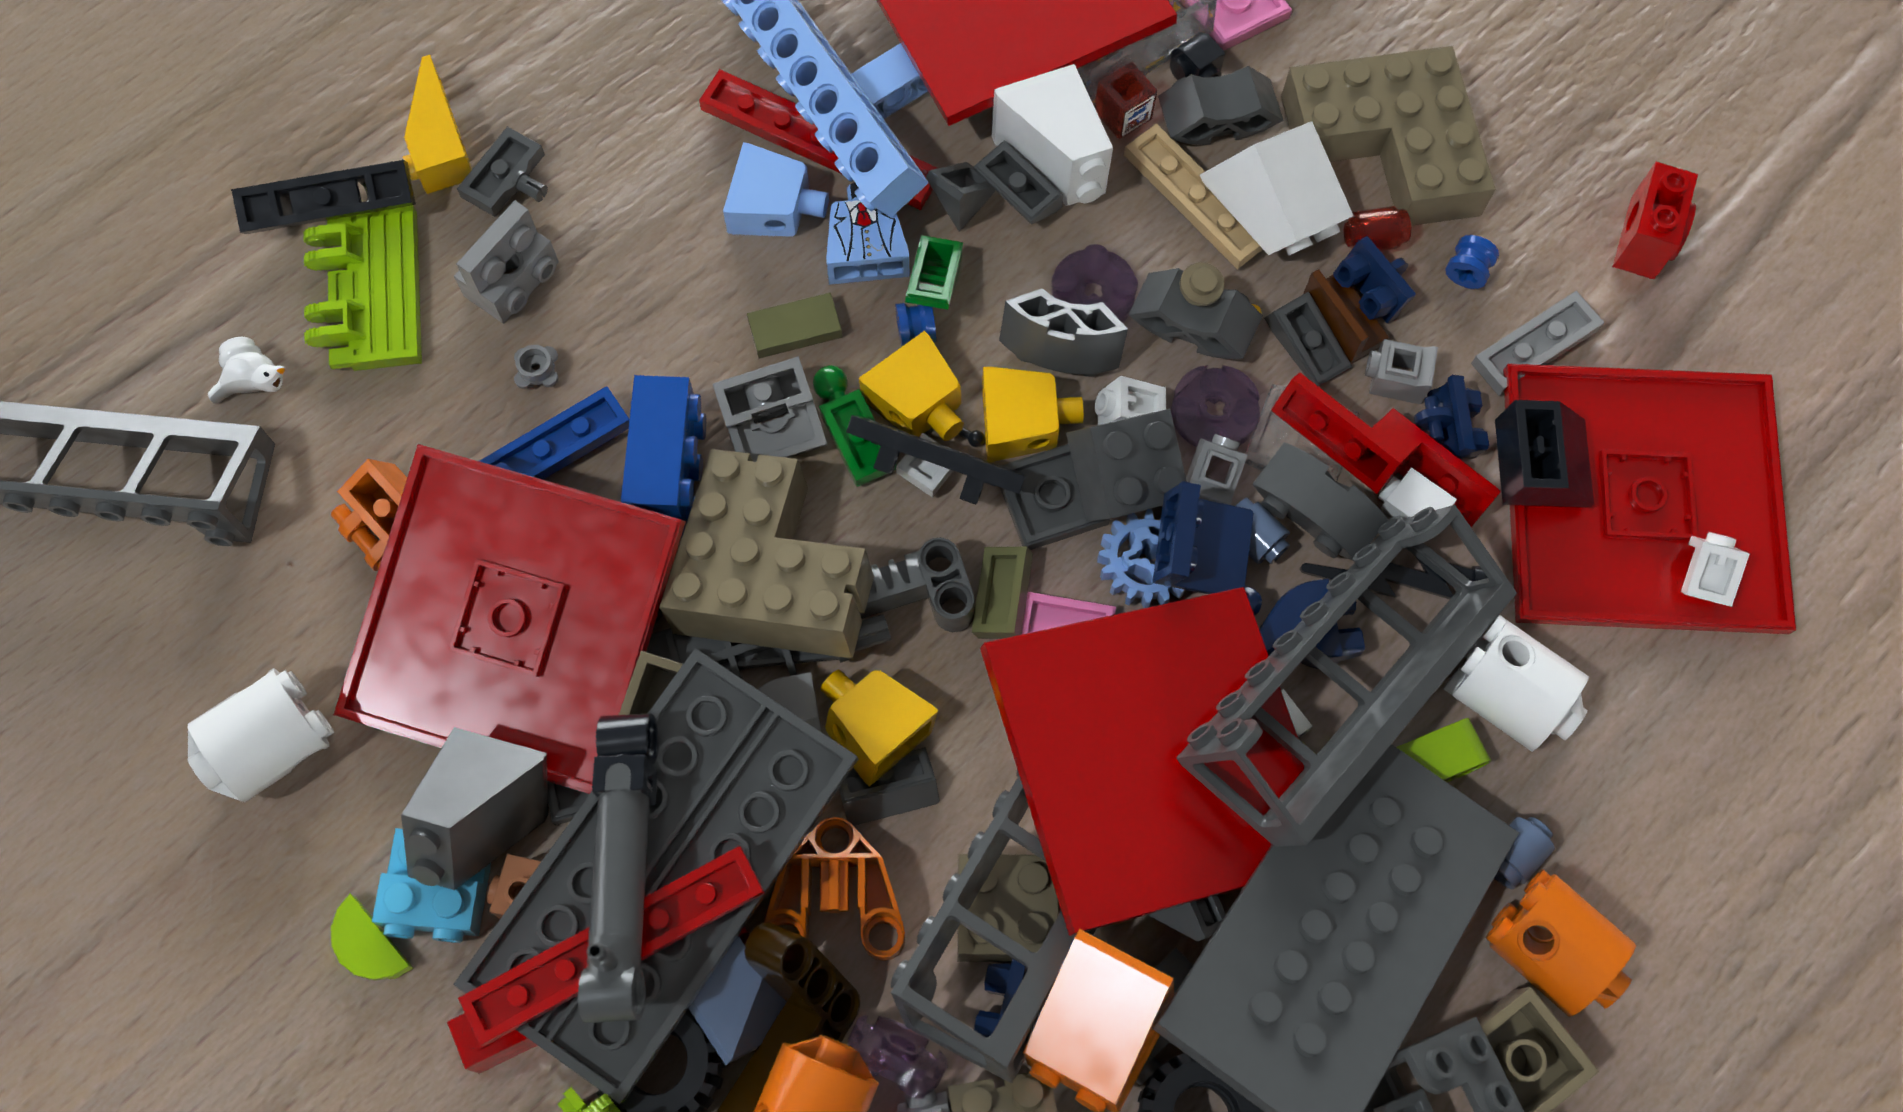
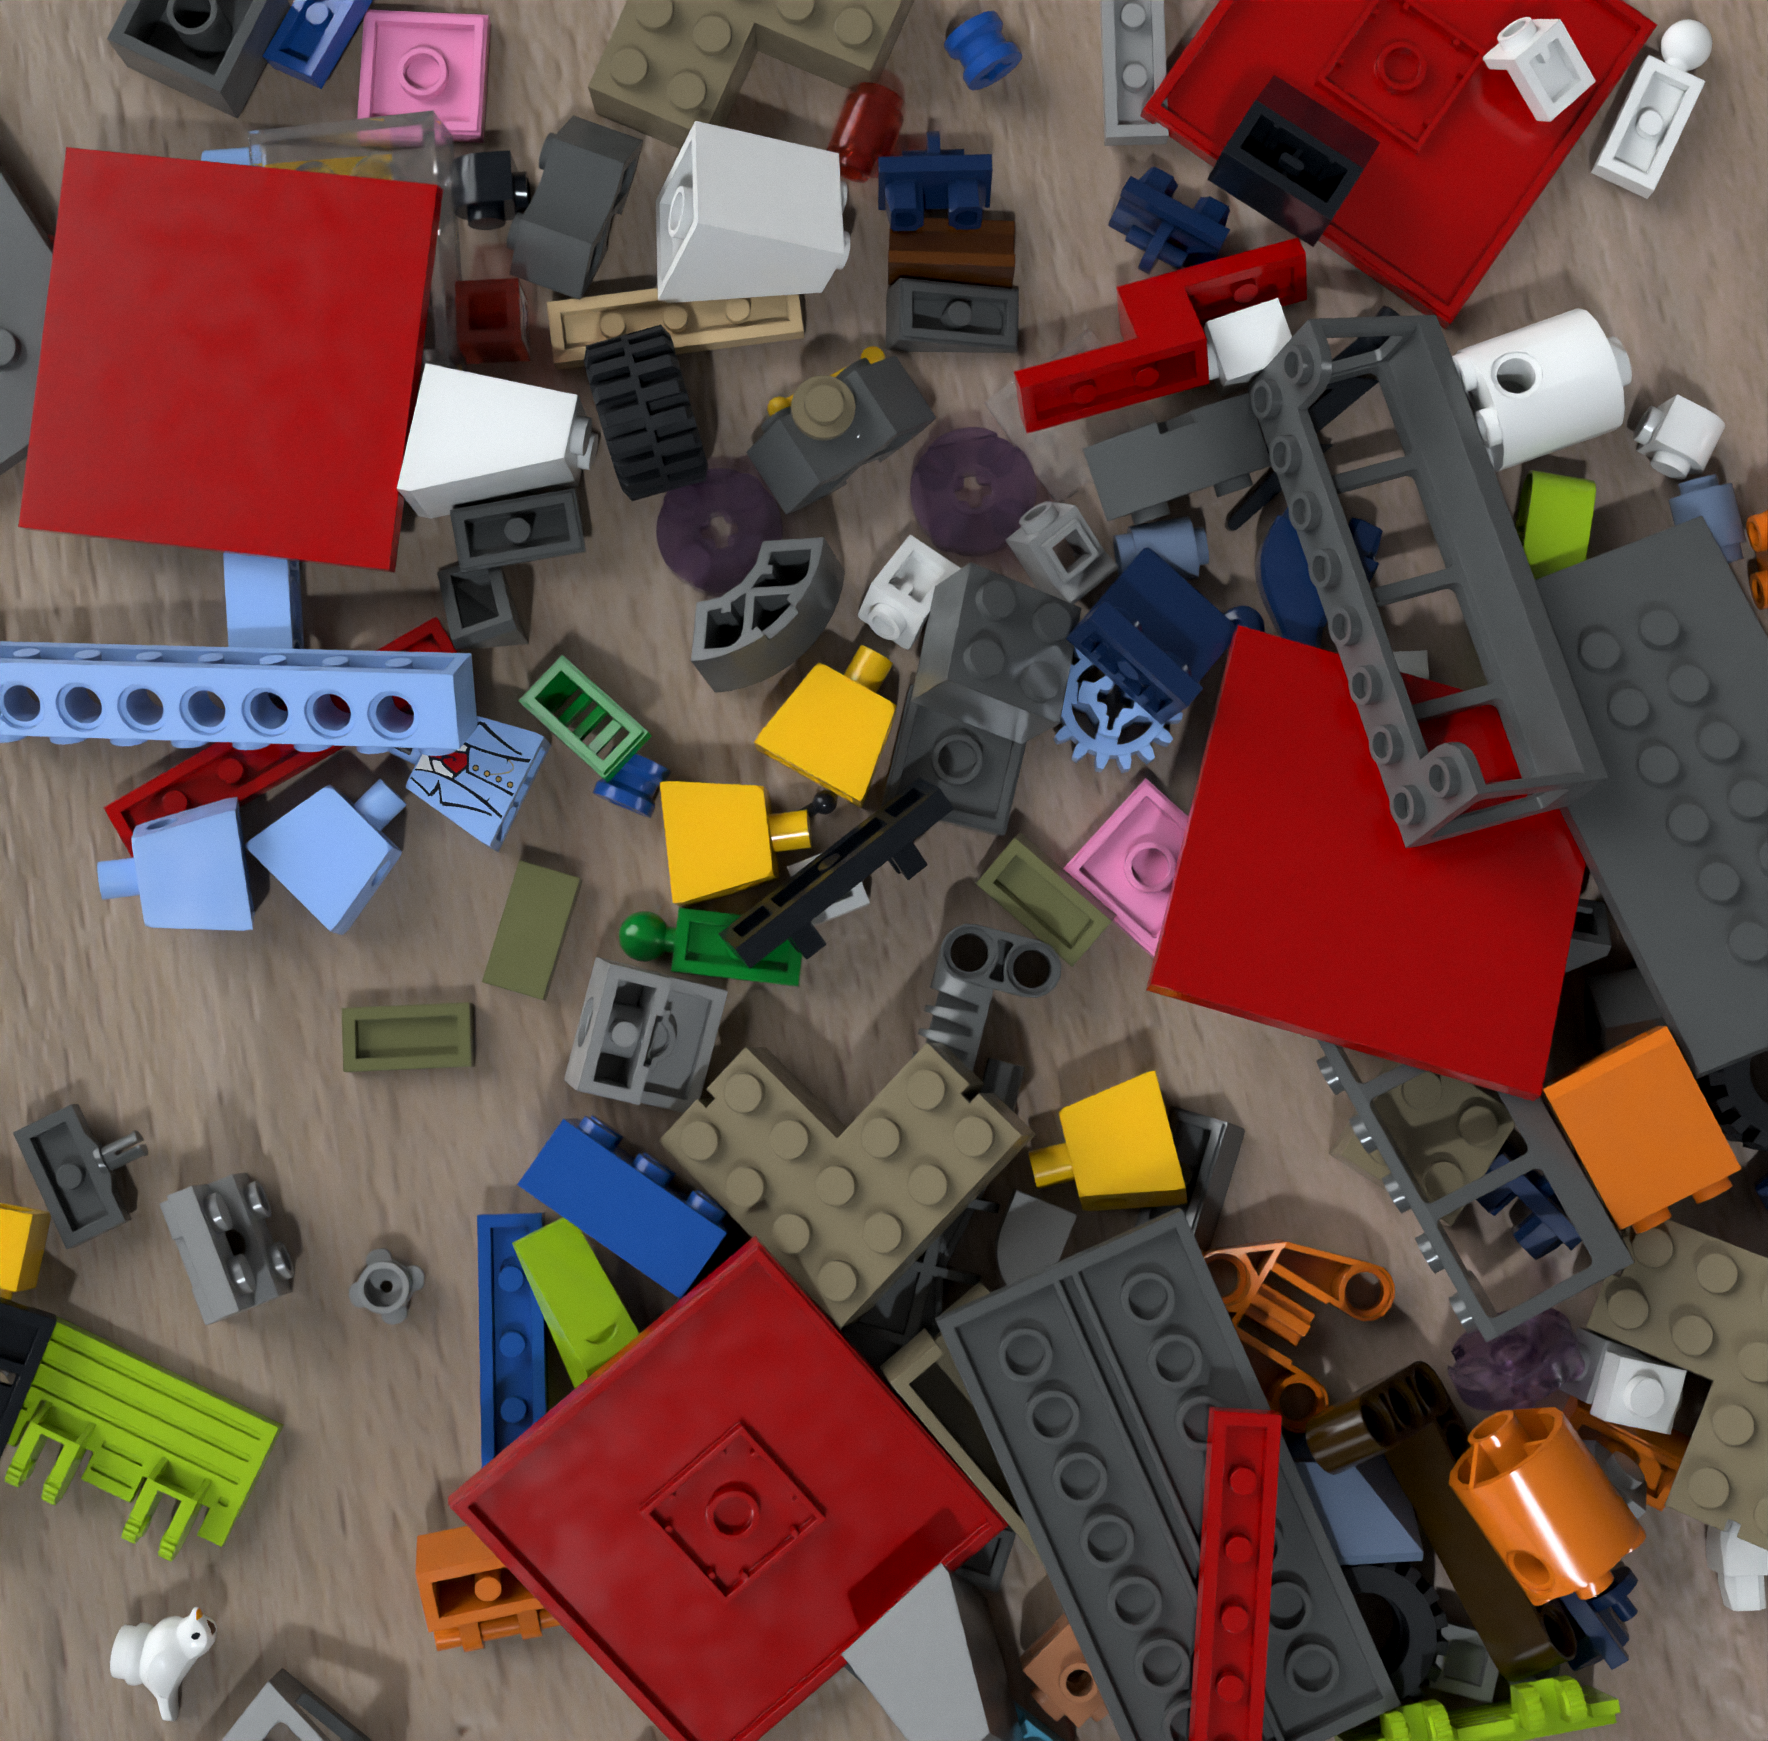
camera: 55 degrees left, 15 degrees up
(593, 454) = (574, 1298): none -> lime slope
(625, 788) = (1070, 1507): dark grey piece -> none
(690, 296) = (408, 1037): none -> olive tile
(710, 124) = (187, 870): none -> light blue torso
(1130, 198) = (645, 412): none -> black tyre
(1400, 383) = (1047, 260): light grey window -> none
(1558, 798) = (1678, 437): none -> white plate
(1743, 660) = (1655, 111): none -> white plate

